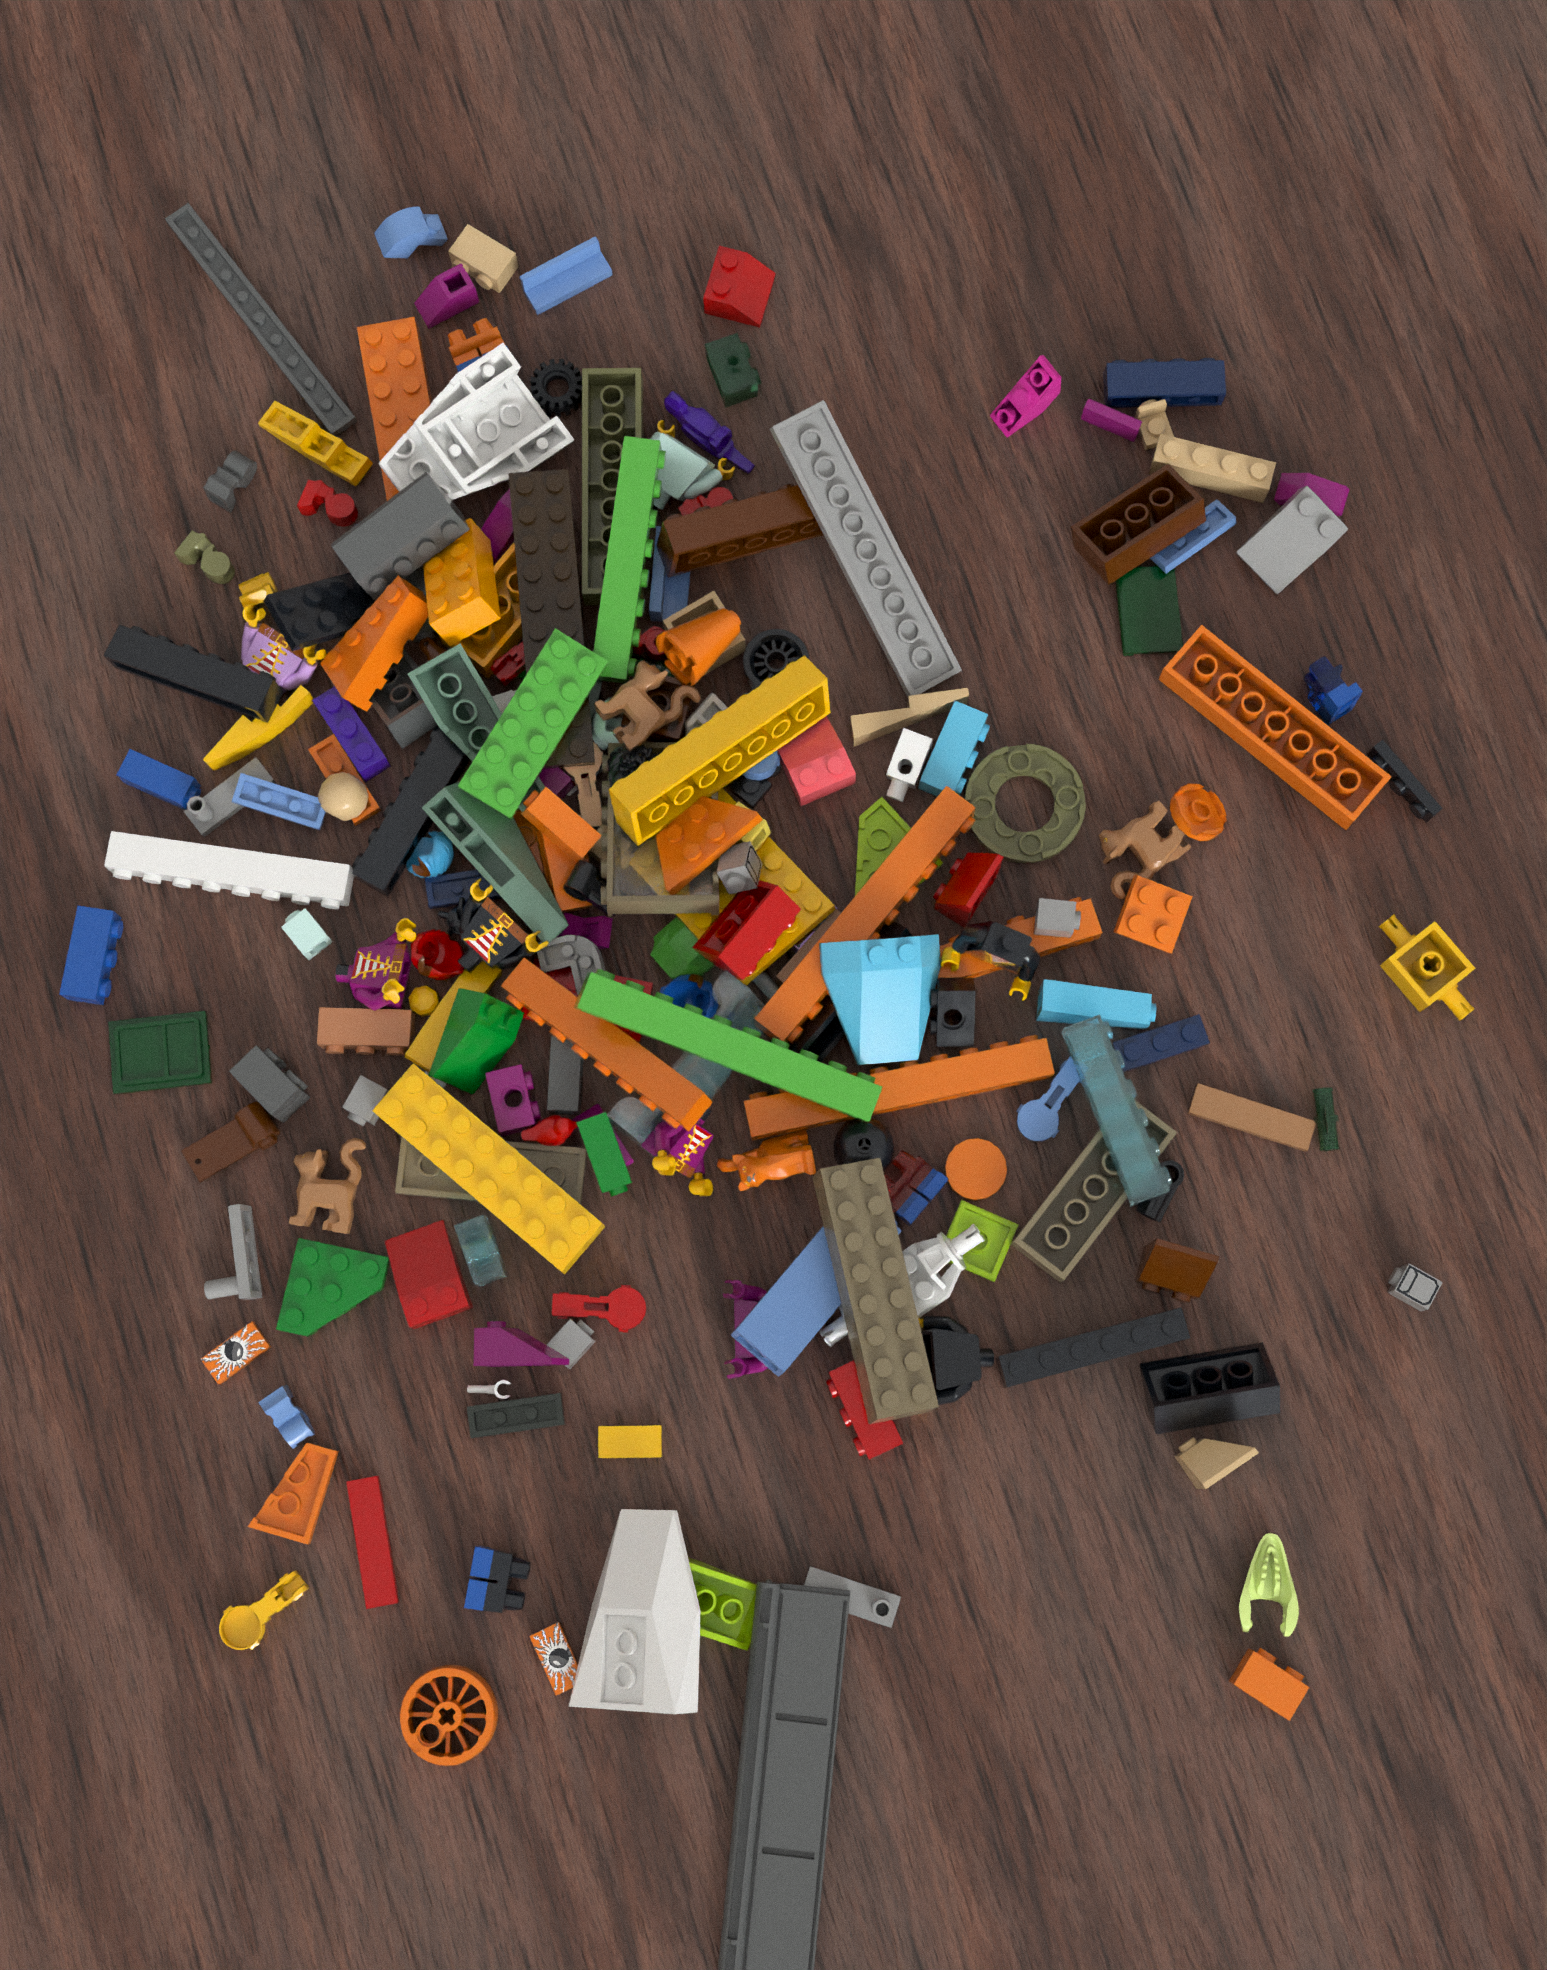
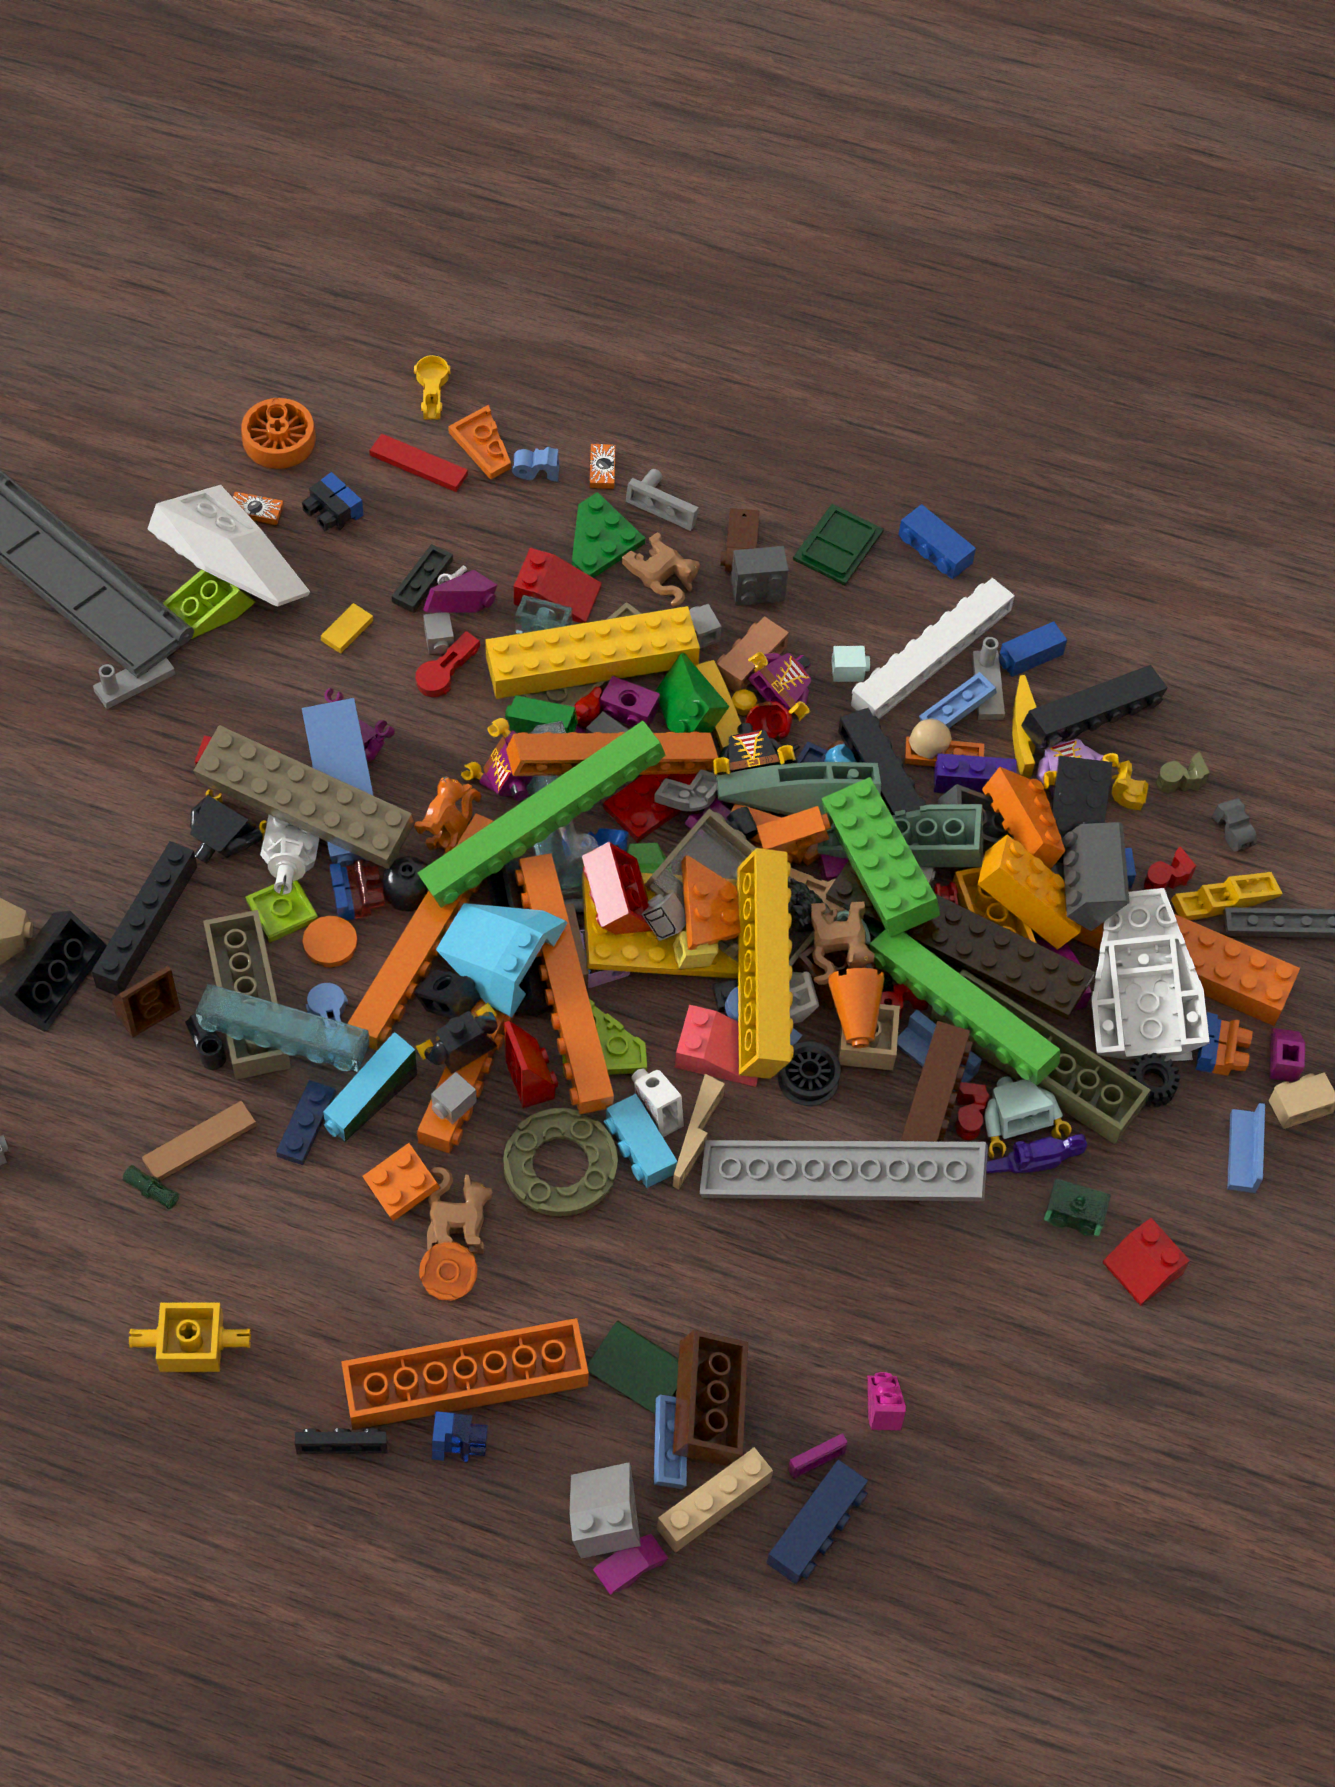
camera: 120 degrees right, 20 degrees down
(1153, 421) = (788, 1490): tan bracket -> none

